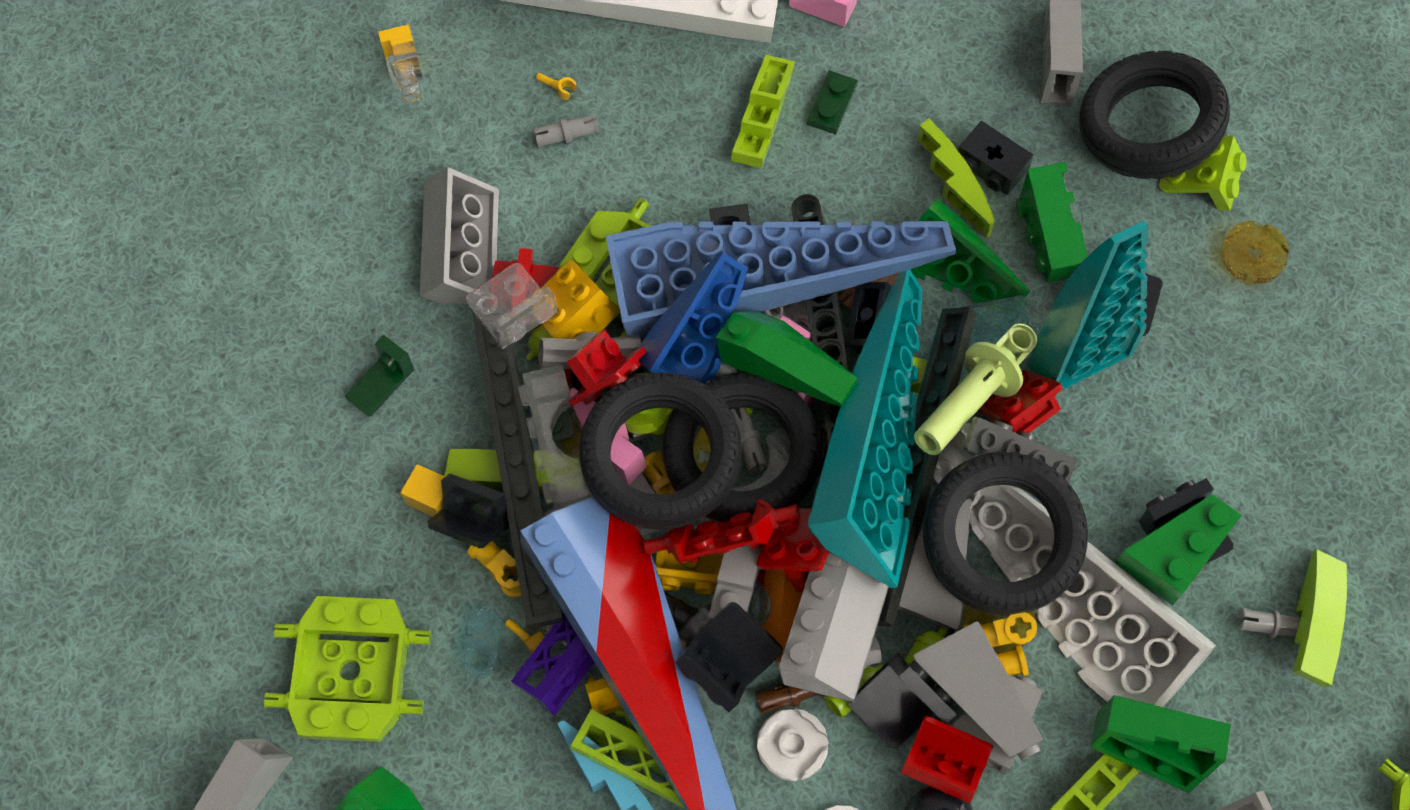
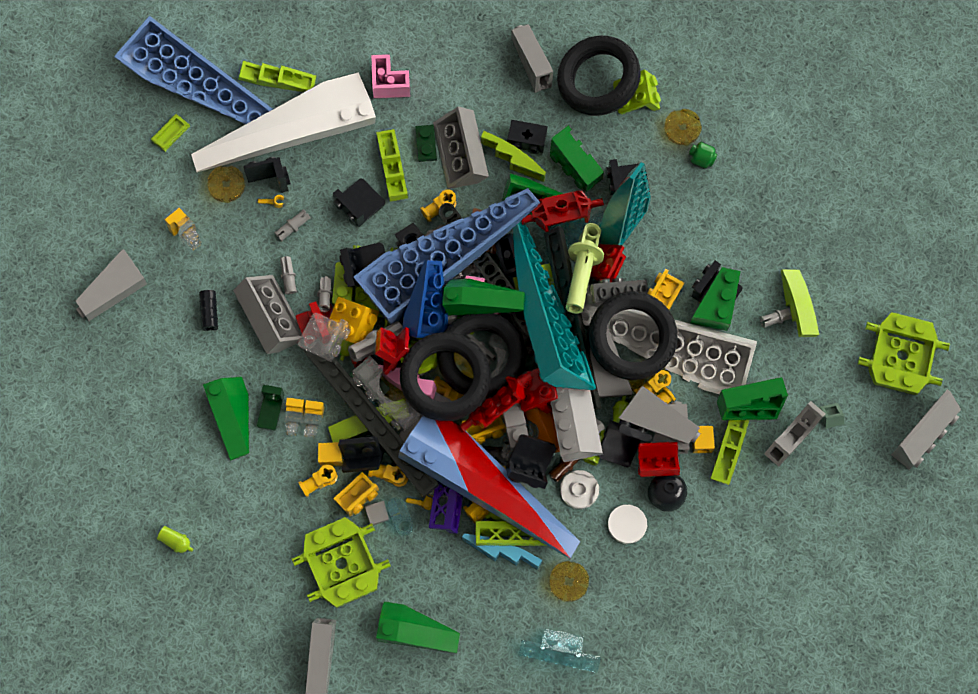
camera: 30 degrees left, 5 degrees up
(123, 506) = (174, 540): none -> lime piece
(254, 99) = (110, 287): none -> light grey slope
(319, 351) = (231, 411): none -> green wedge
(373, 195) = (208, 310): none -> black axle
(388, 523) = (319, 480): none -> yellow connector
(422, 411) = (310, 420): none -> clear hips
(433, 574) = (356, 494): none -> yellow bracket
(449, 619) = (377, 513): none -> light grey tile
(509, 45) = (226, 174): none -> clear yellow plate
(518, 198) = (288, 275): none -> light grey axle
(556, 250) = (324, 294): none -> light grey axle
(572, 33) = (267, 169): none -> black bracket
(623, 214) = (357, 259): none -> black bracket
(683, 140) = (358, 202): none -> black bracket
(783, 200) = (433, 209): none -> yellow connector
(881, 131) = (460, 148): none -> light grey slope
(967, 280) = (576, 207): none -> red plate
(1044, 767) = (705, 441): none -> yellow panel
(1102, 489) = (666, 288): none -> yellow bracket
(1267, 308) = (702, 155): none -> green head

